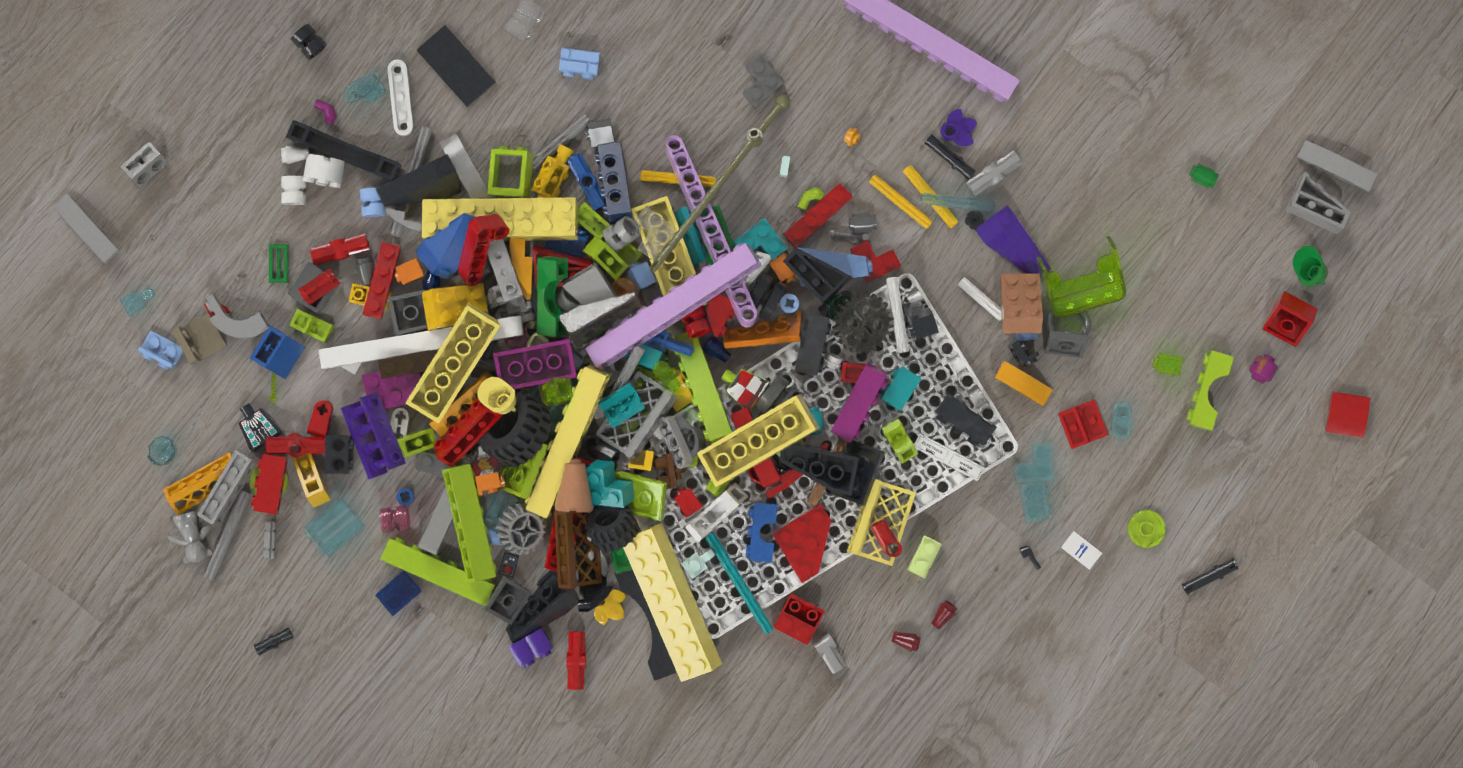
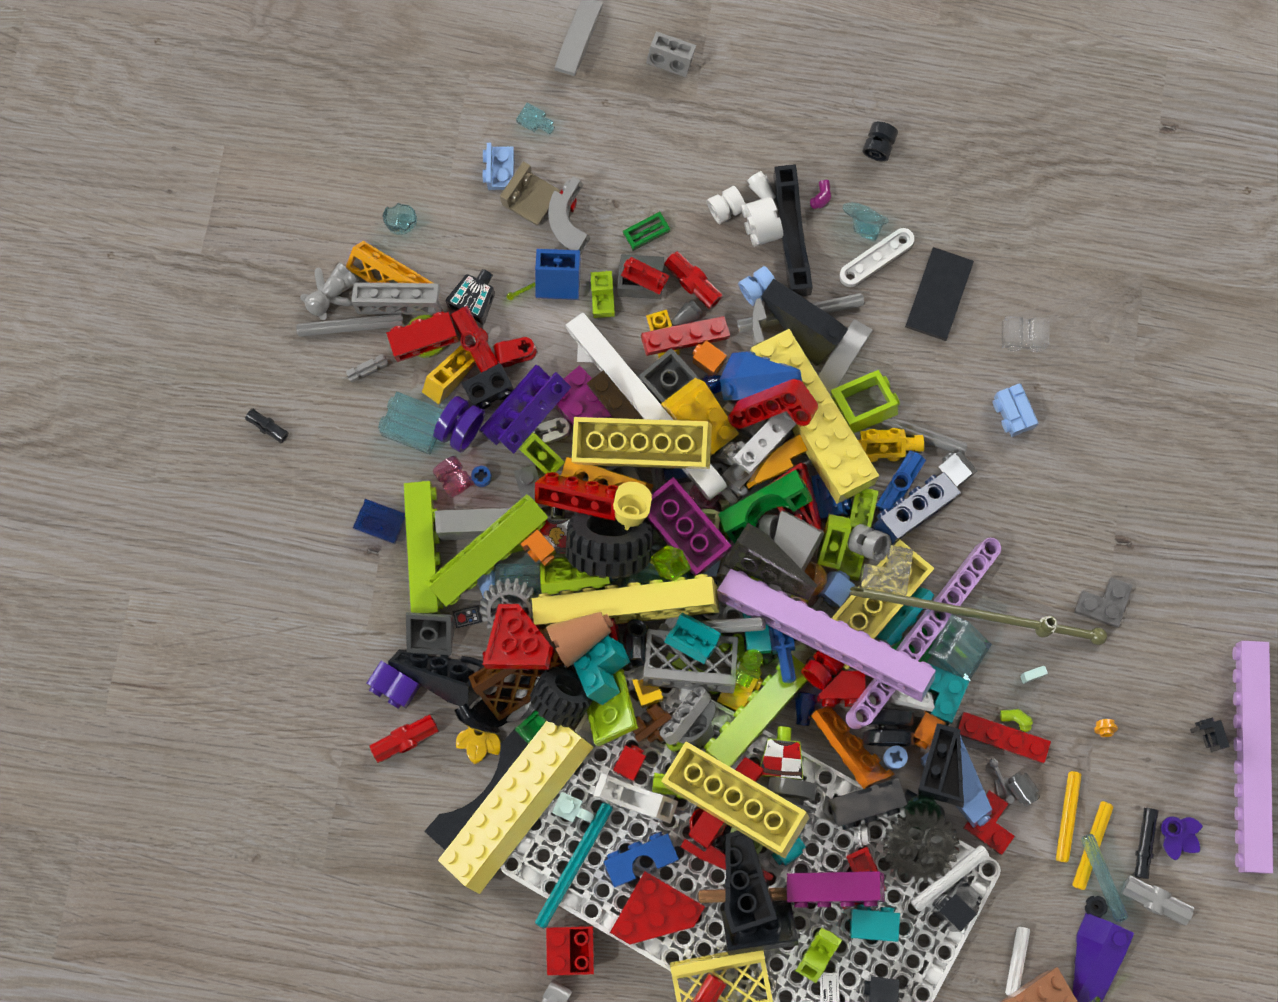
camera: 65 degrees right, 10 degrees down
(354, 494) = (459, 424): none -> dark purple wheel
(553, 538) = (516, 641): none -> red plate
(666, 177) = (953, 564): yellow axle -> none
(736, 210) = (960, 647): none -> clear light blue brick
(903, 63) = (1215, 735): none -> black bracket

